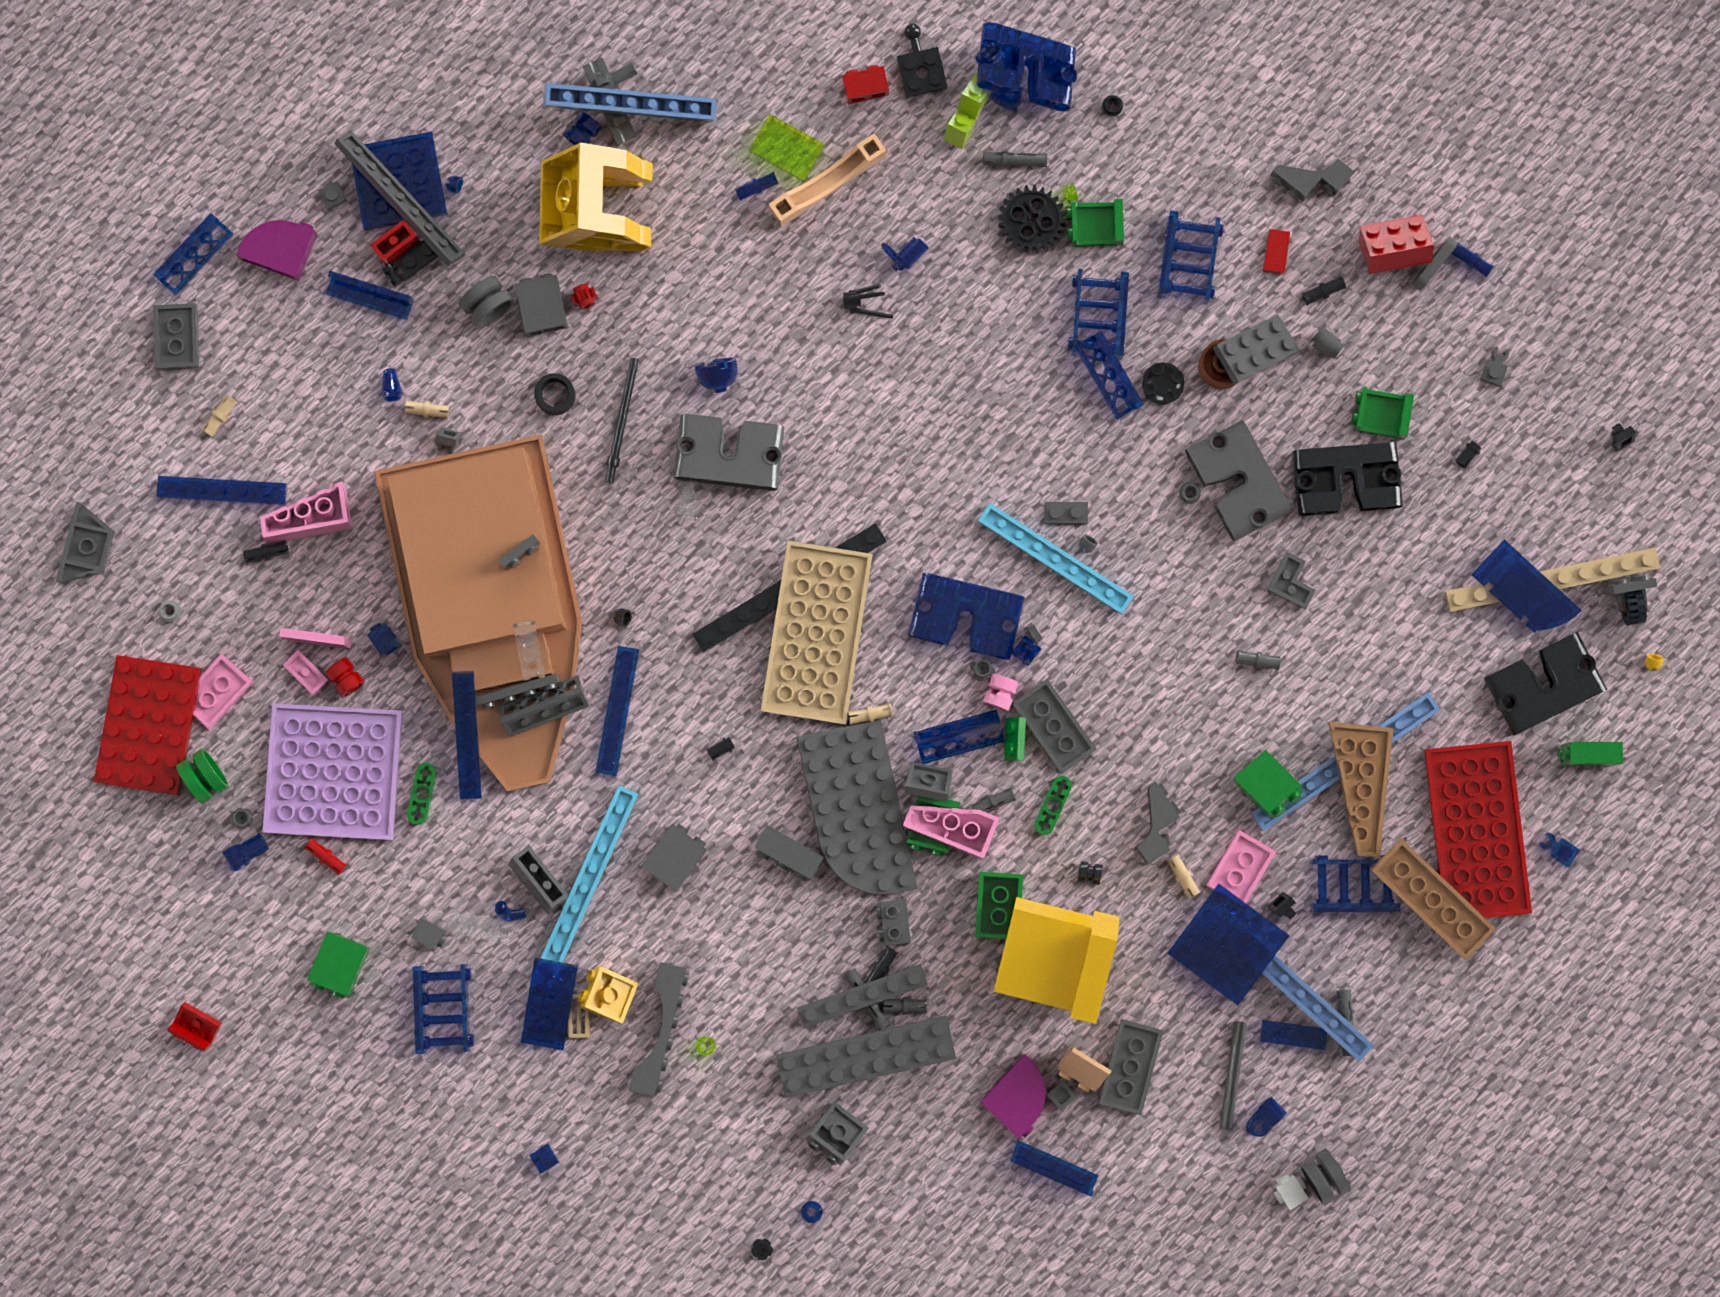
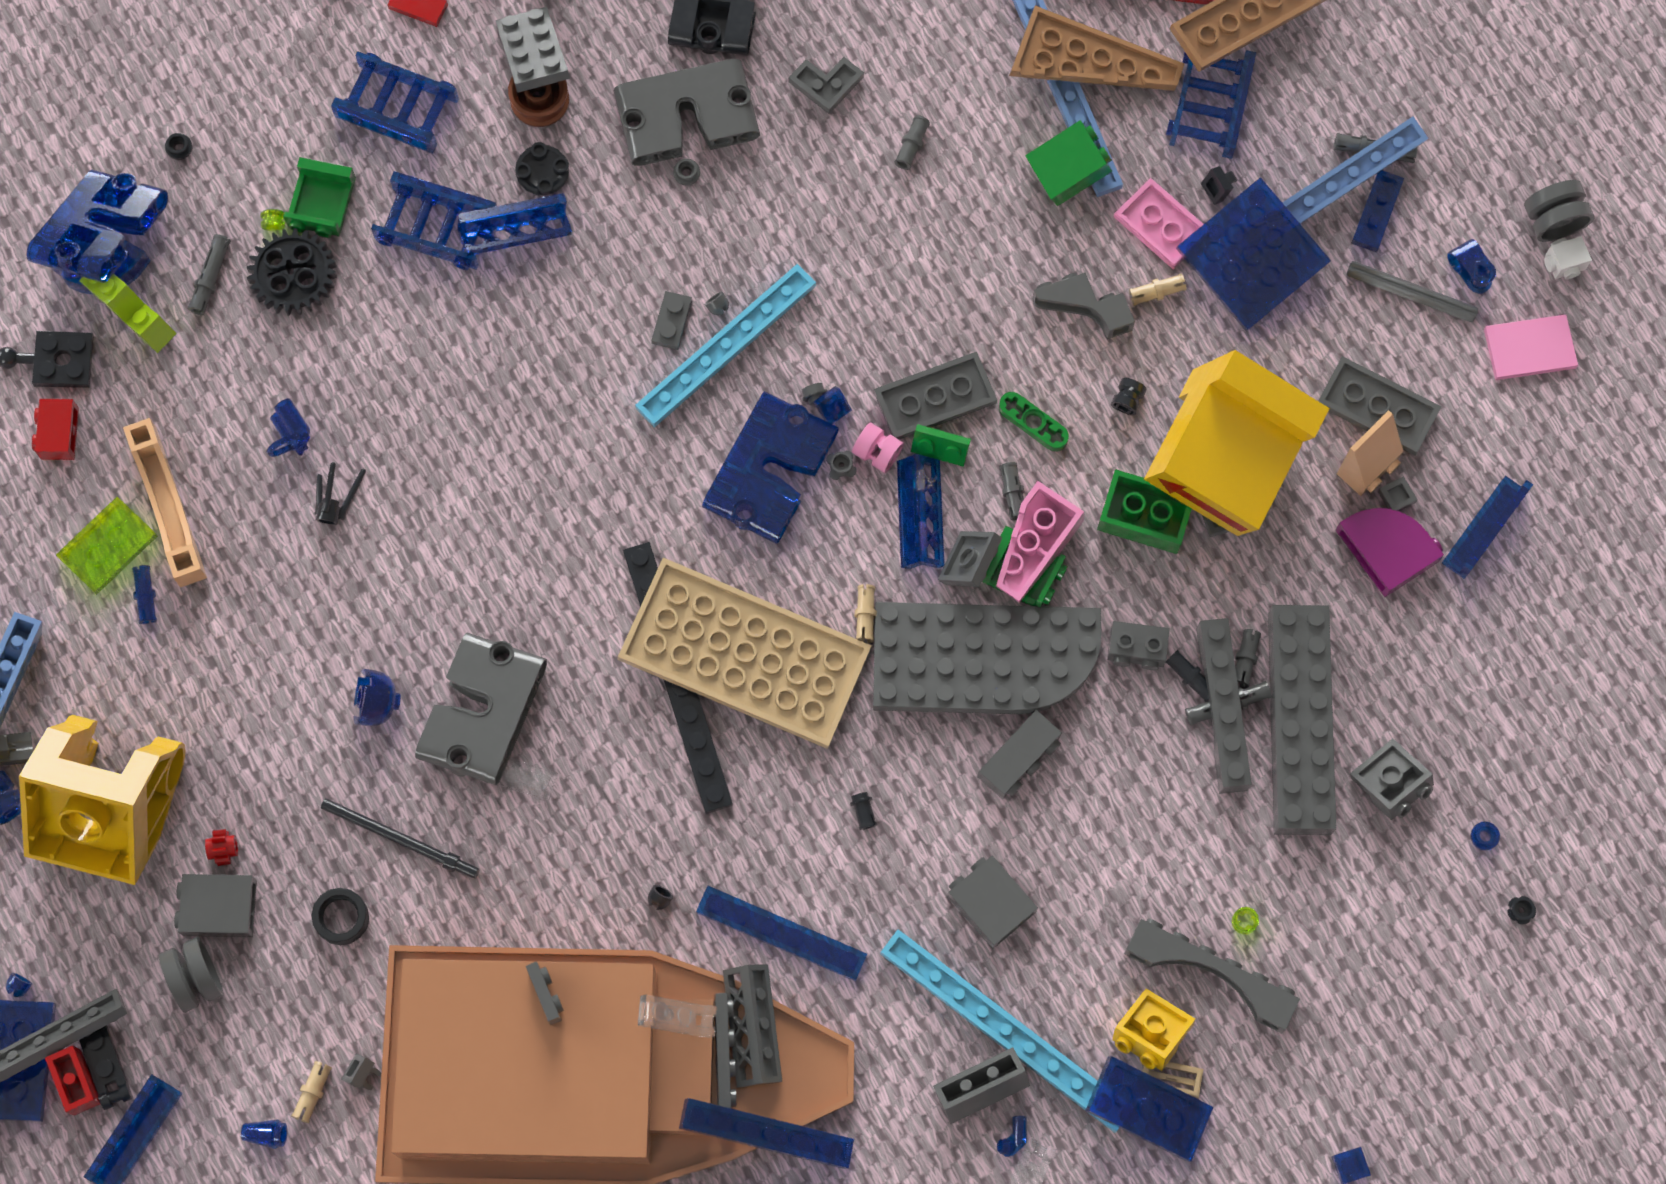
camera: 80 degrees left, 10 degrees down
(1210, 1176) = (1530, 347): none -> bright pink tile

